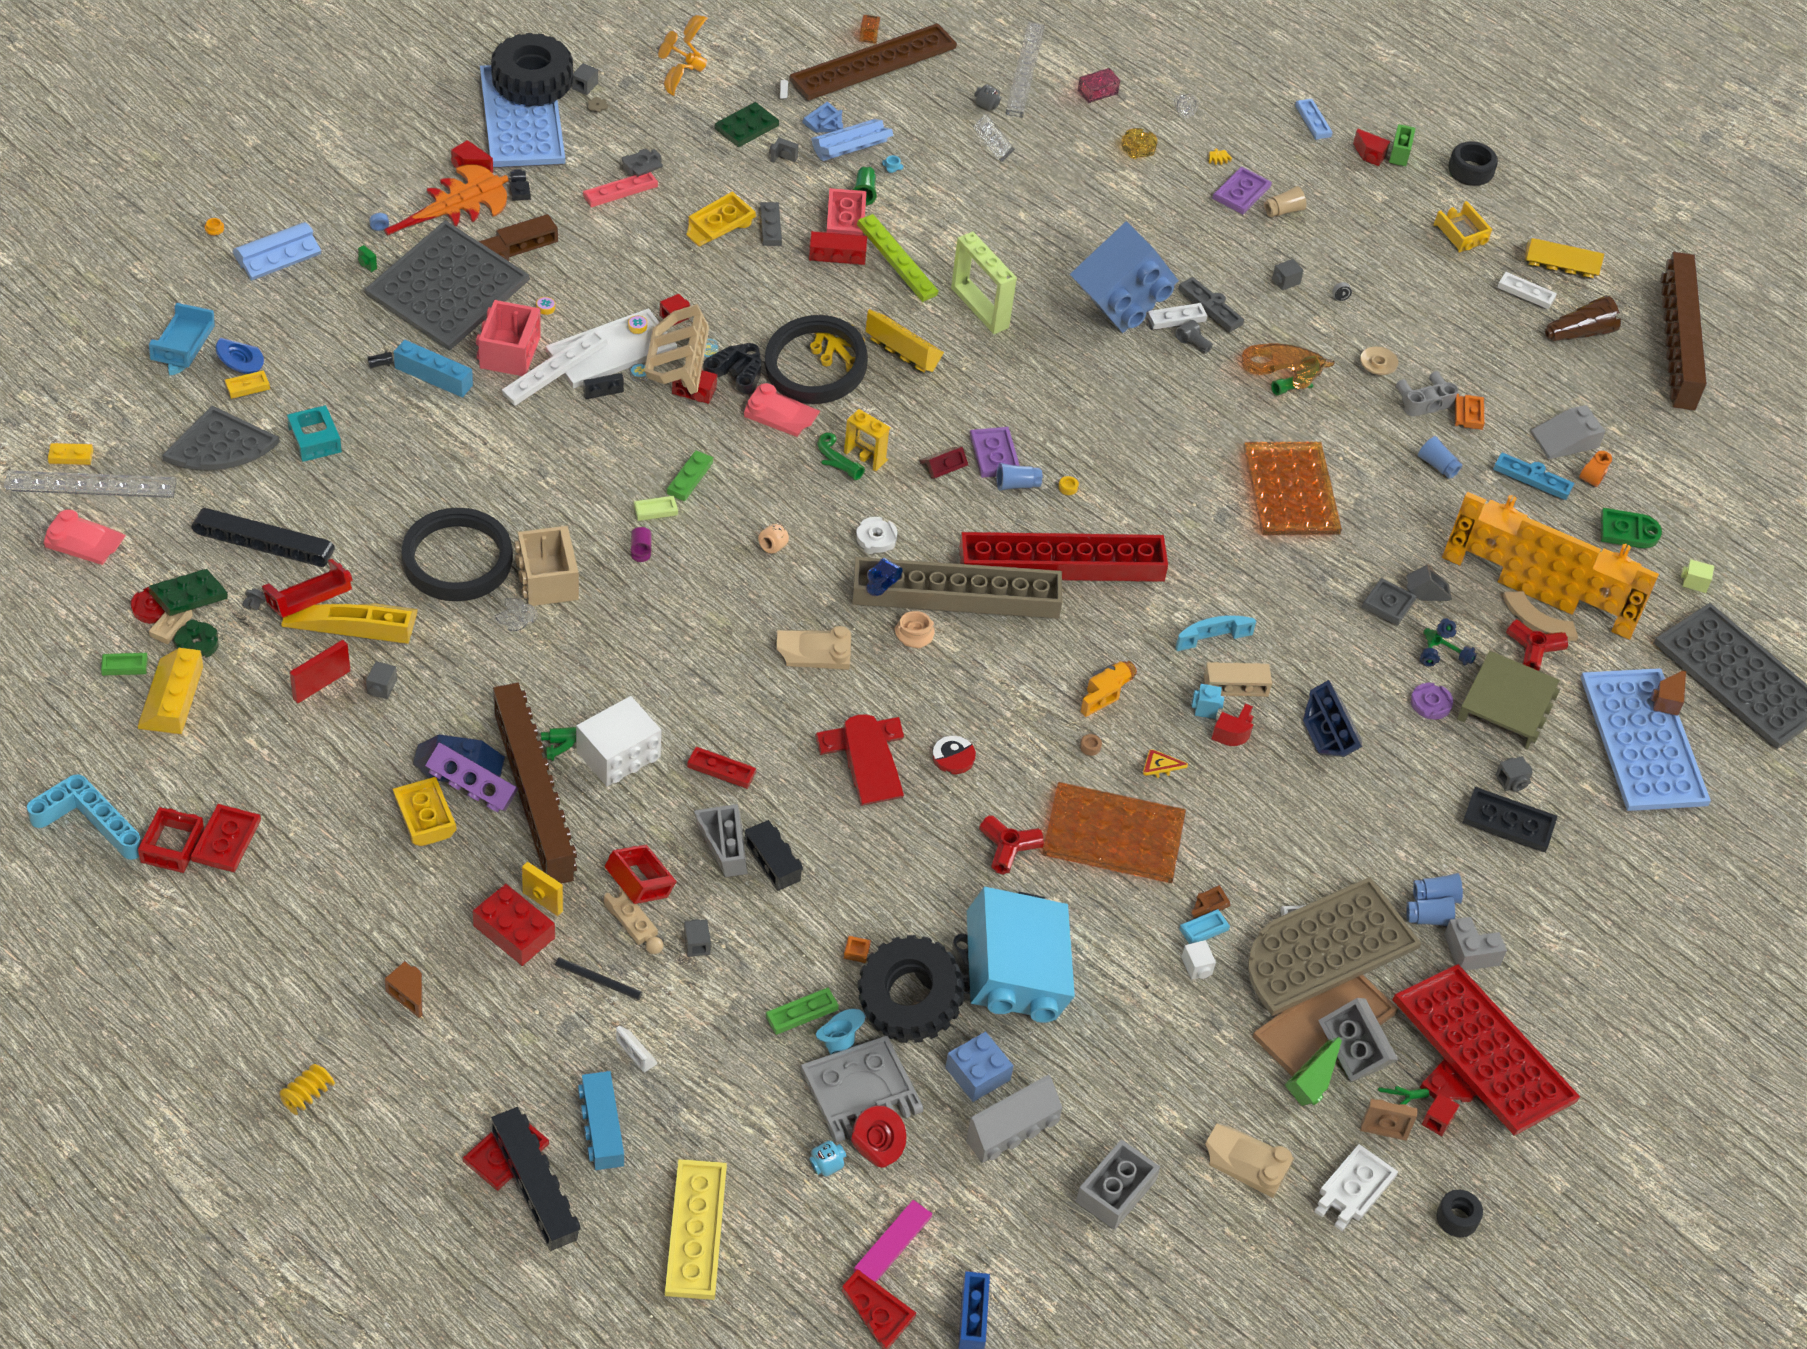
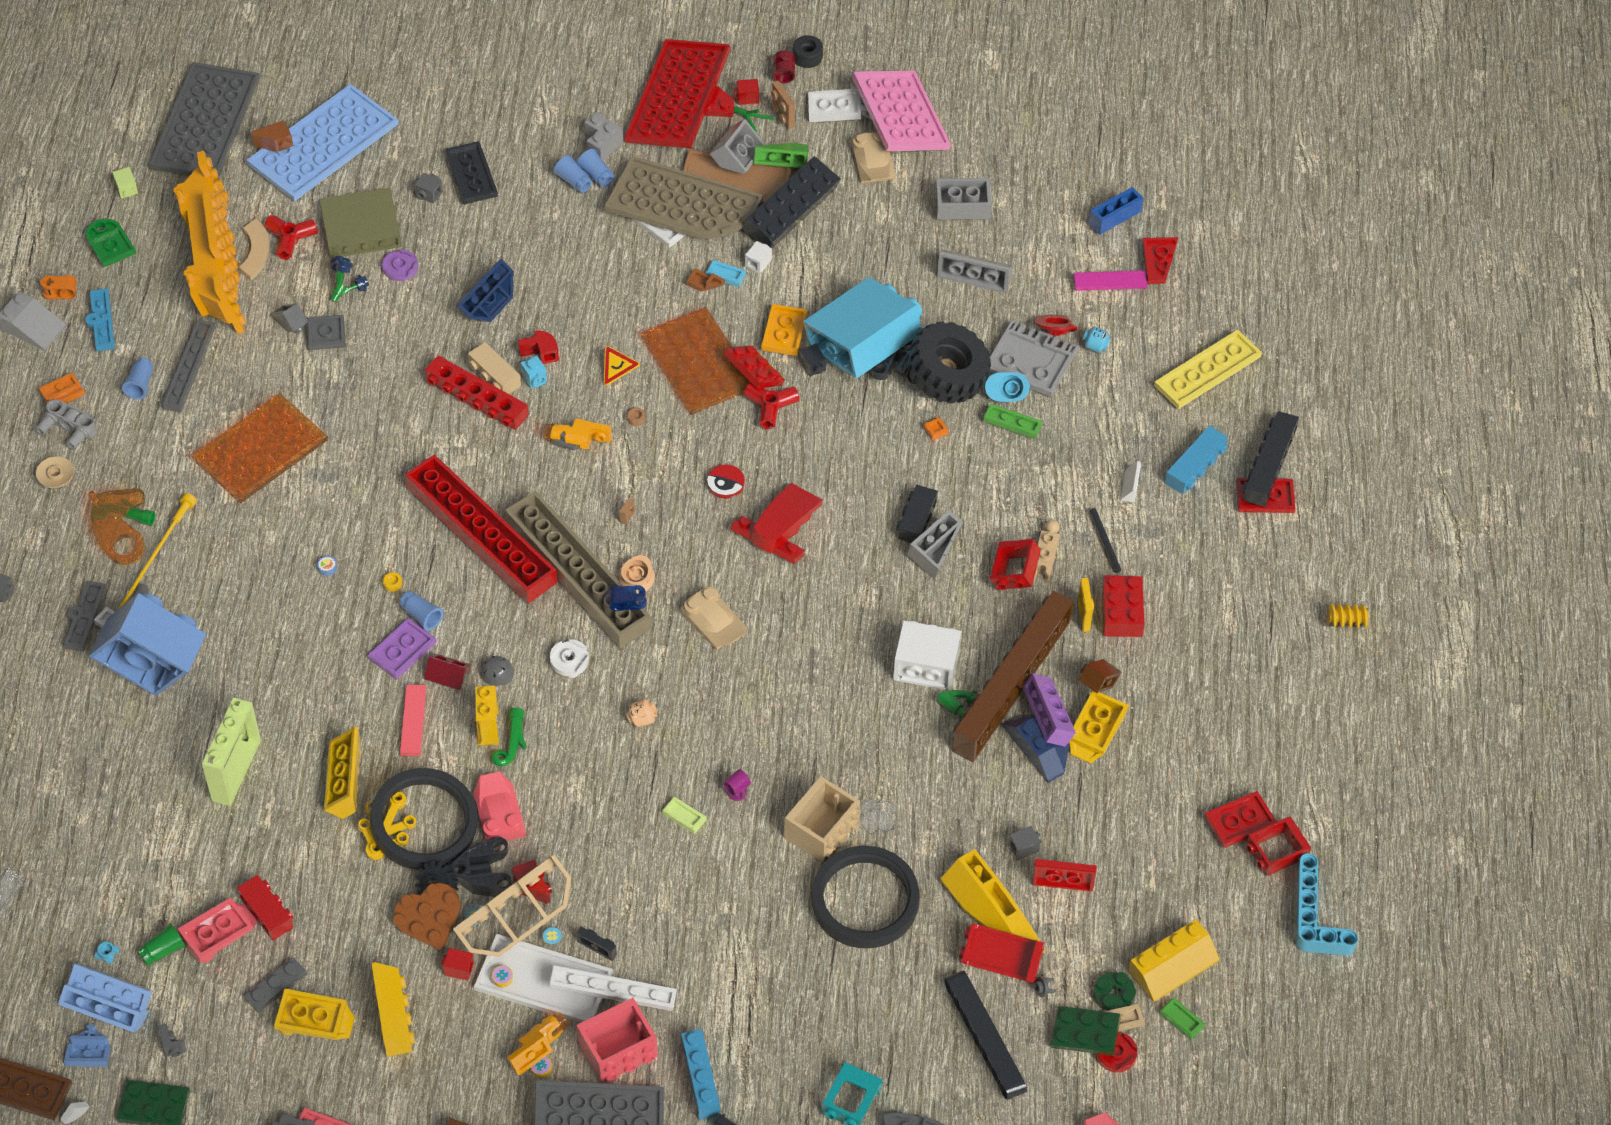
camera: 125 degrees left, 5 degrees up
(406, 987) = (1226, 625): dark orange slope -> none
(463, 840) = (1099, 675): none -> reddish brown brick
(563, 306) = (536, 1042): none -> light orange plate
(678, 251) = (392, 1009): none -> yellow slope
(690, 475) = (628, 818): bright green plate -> none
(697, 938) = (1023, 507): dark grey brick -> none
(721, 767) = (878, 594): red plate -> none
(731, 313) = (429, 915): none -> dark orange plate
(751, 332) = (436, 872): none -> black gear
(897, 257) = (238, 855): lime plate -> none
(912, 489) = (494, 666): none -> dark grey helmet
(918, 417) = (413, 720): none -> coral tile
(979, 1066) = (956, 307): medium blue brick -> none
(987, 663) = (627, 511): none -> medium nougat tile
(1061, 855) = (754, 366): none -> red plate
(1091, 918) = (784, 330): none -> light orange plate
(1124, 458) = (327, 565): none -> tile
(1236, 625) = (480, 417): medium azure slope -> none
(1237, 647) = (476, 392): none -> red brick
(1243, 1030) = (791, 203): none -> black brick
(1273, 416) = (187, 502): none -> yellow piece
(1293, 1223) = (901, 110): none -> bright pink plate
(1421, 491) = (189, 365): none -> dark grey plate
(1449, 1169) = (784, 67): none -> dark red wheel

